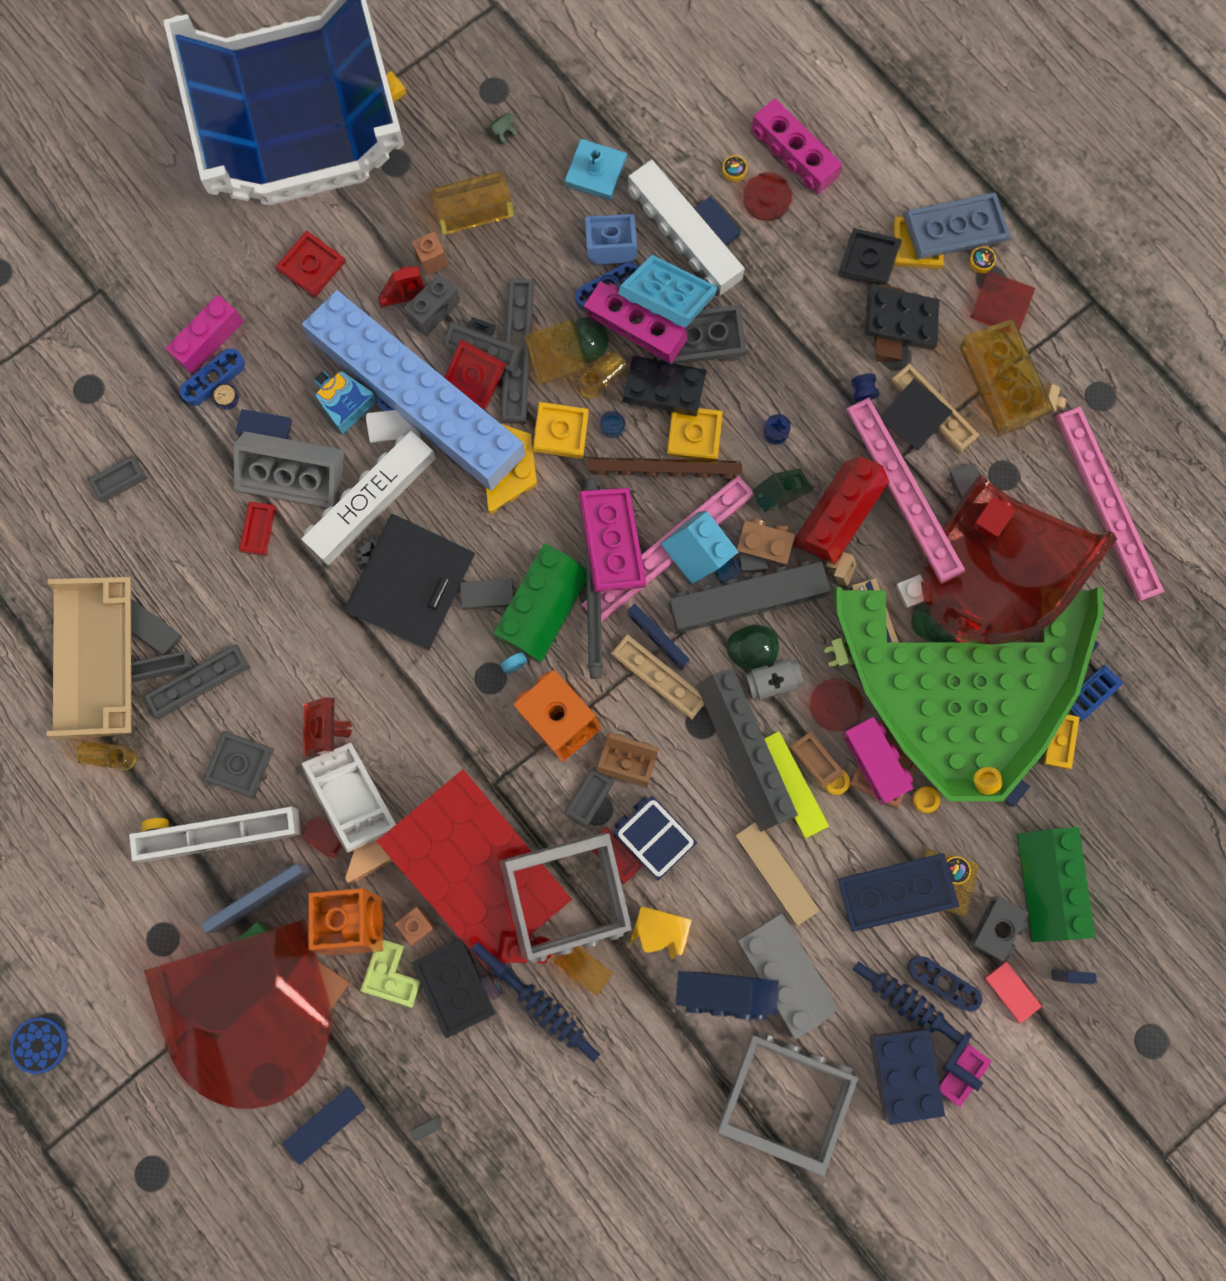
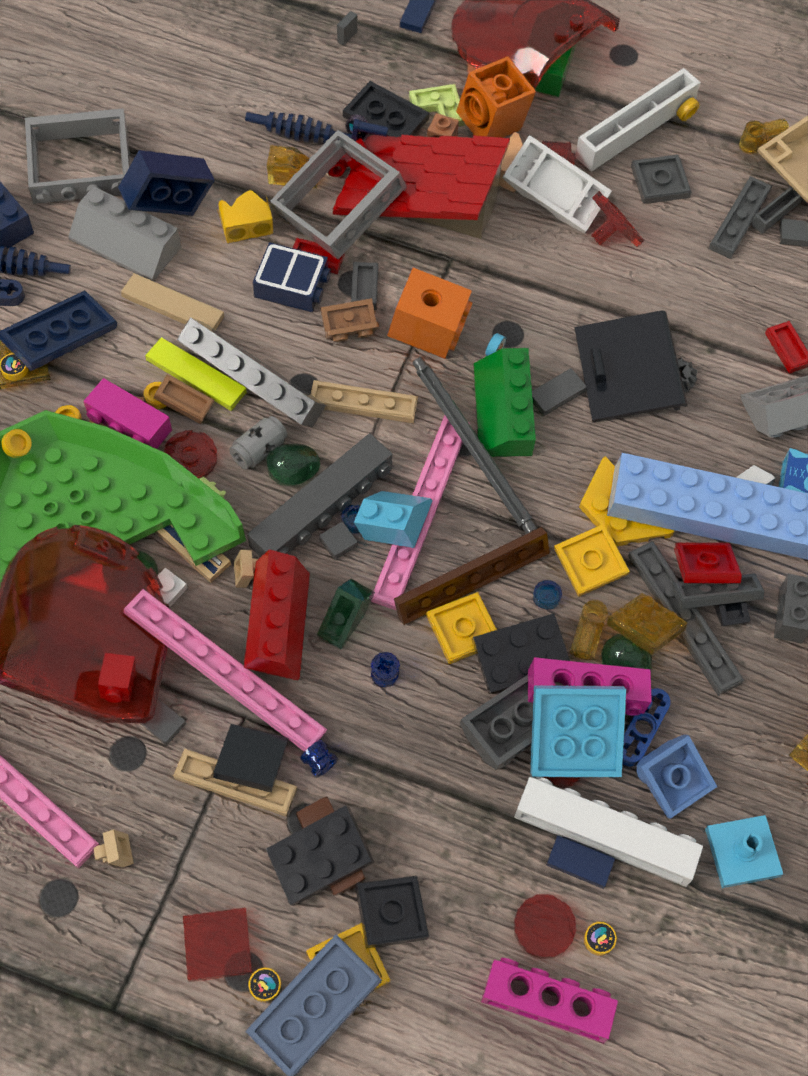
camera: 145 degrees right, 15 degrees down
(256, 898) = (573, 93): sand blue tile -> none
(369, 497) = (717, 406): white brick -> none
(611, 539) = (478, 481): dark pink tile -> none
(658, 637) = (383, 426): dark blue tile -> none
(766, 542) = (334, 556): medium nougat bracket -> none
(1005, 377) = (173, 842): clear yellow slope -> none

